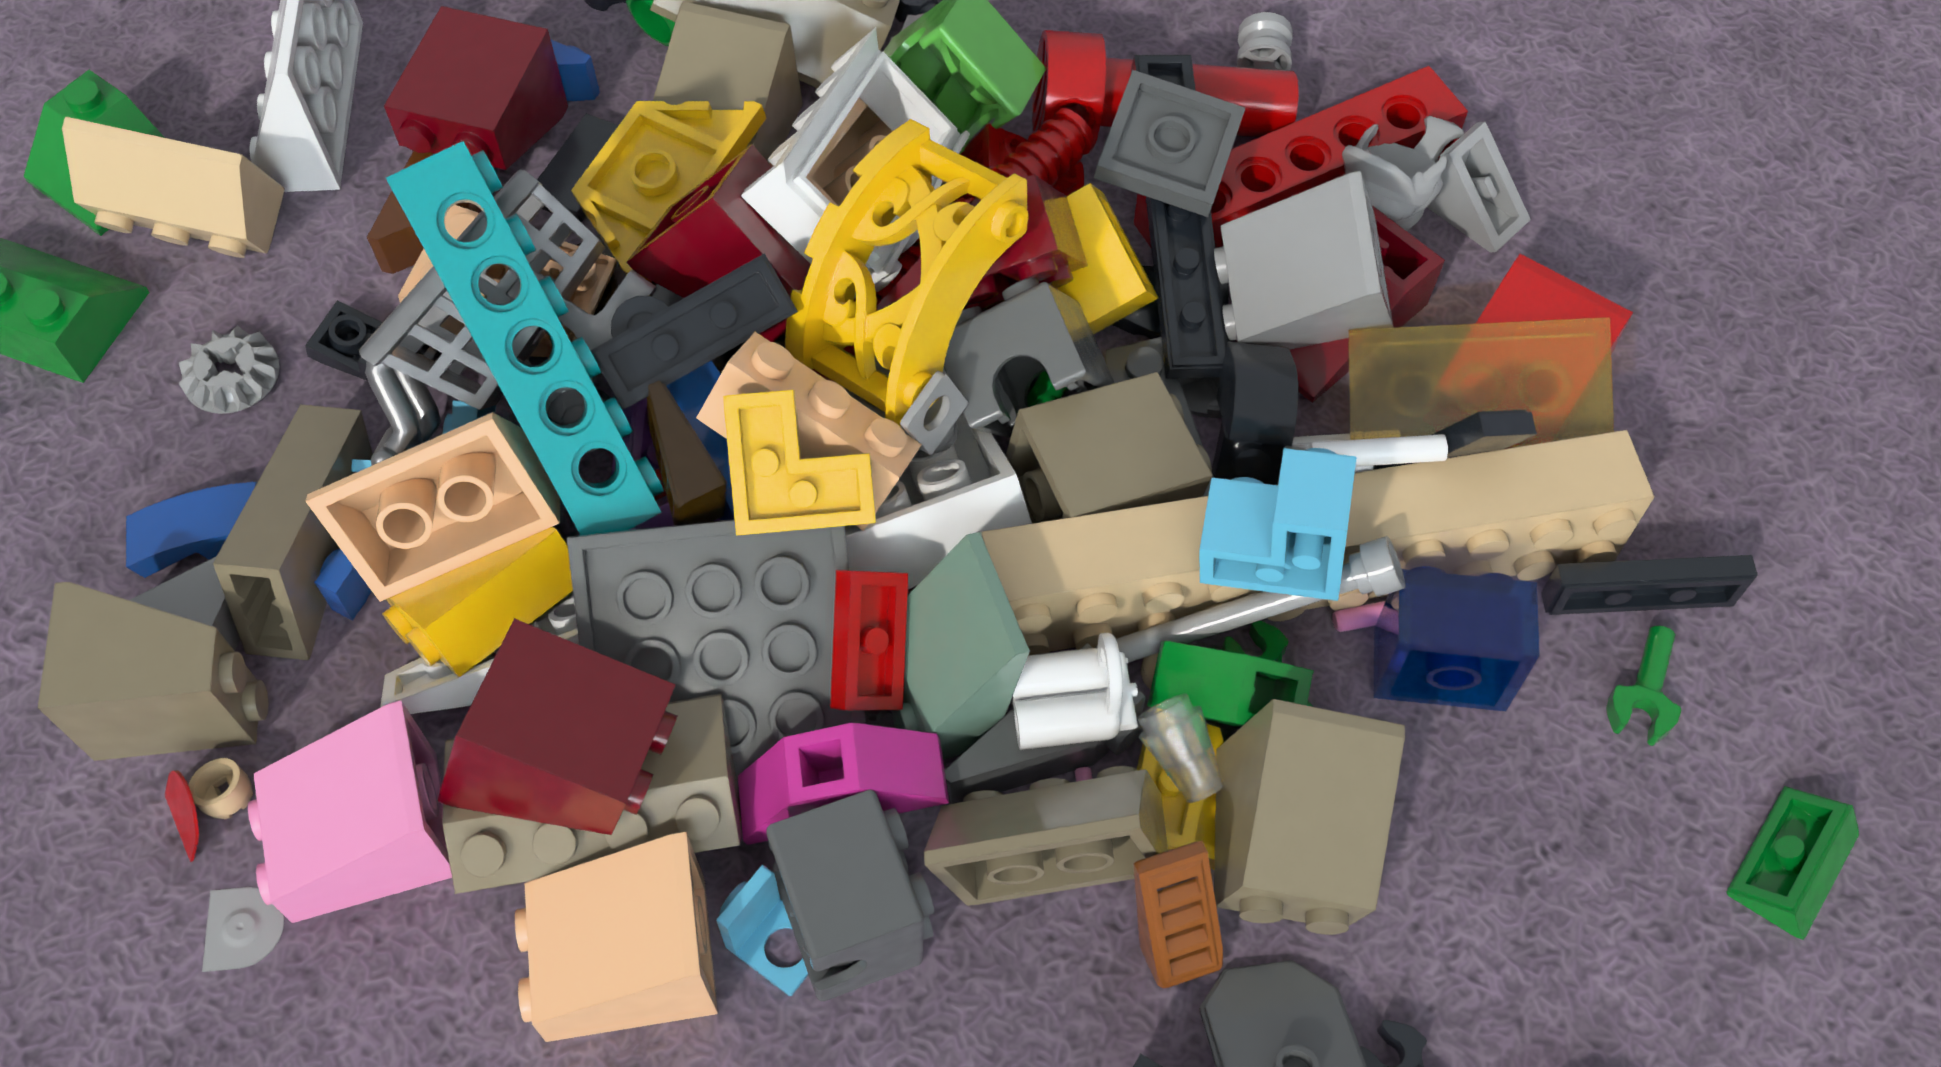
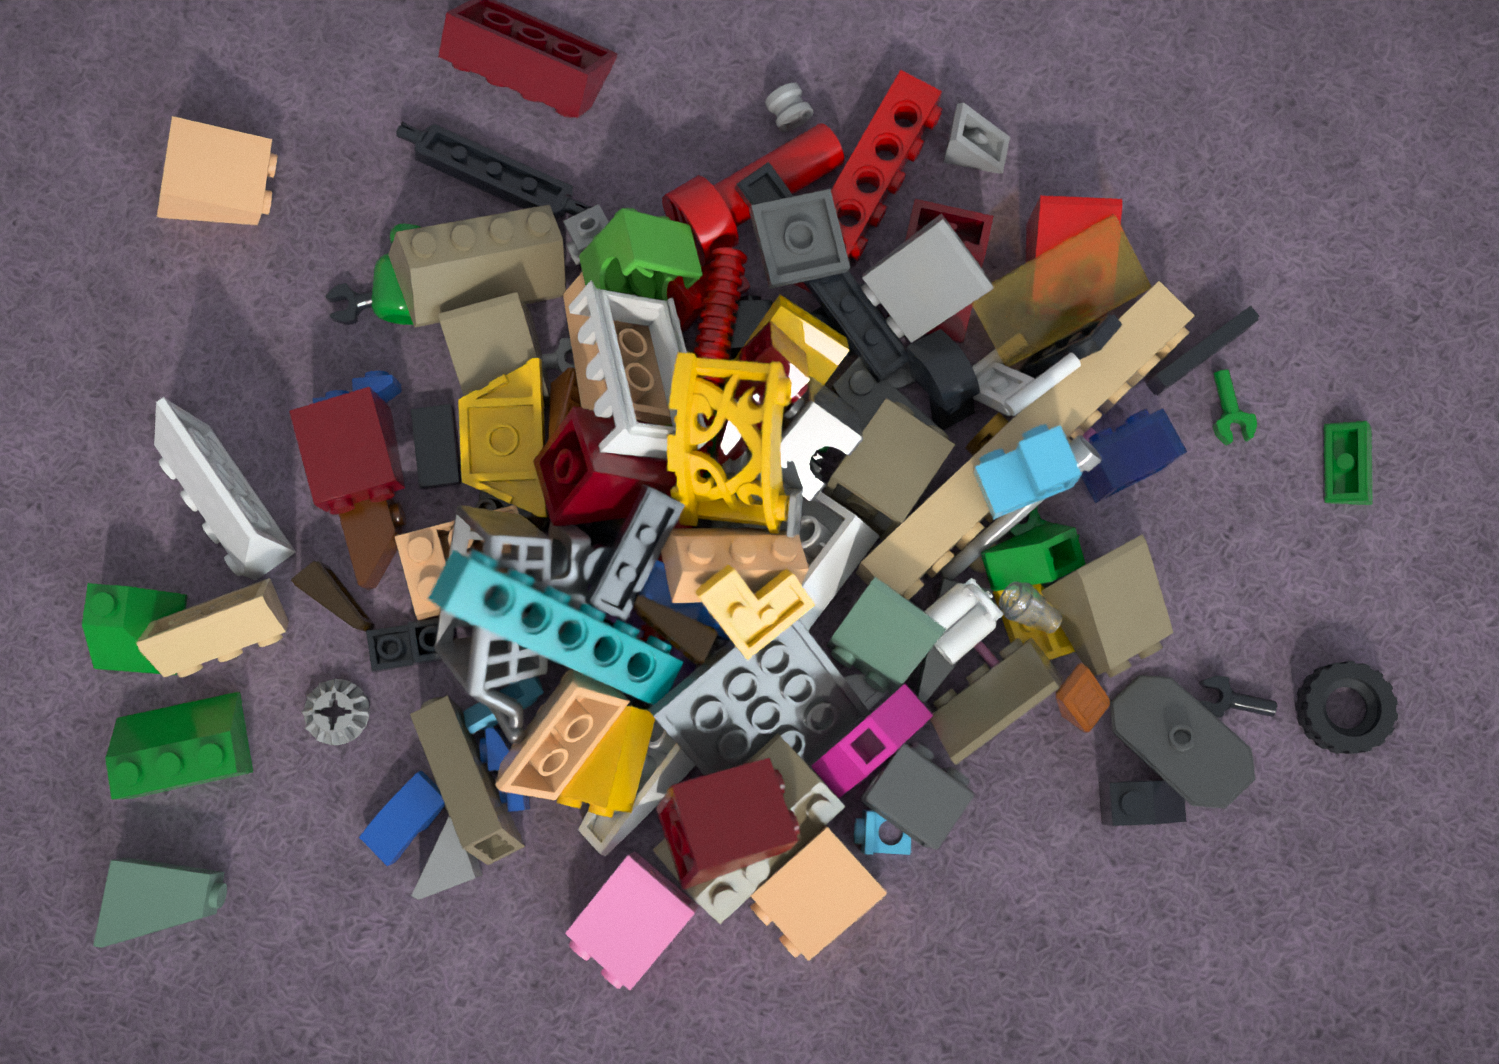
camera: 30 degrees left, 20 degrees up
(143, 679) = (461, 924): dark tan slope -> none
(183, 811) = (535, 971): red piece -> none
(209, 798) = (540, 955): tan hinge -> none
(239, 929) = (609, 1005): light grey piece -> none
(335, 239) = (327, 589): none -> dark brown slope
(869, 640) = (838, 656): red panel -> none
(1402, 178) = (932, 169): light grey piece -> none

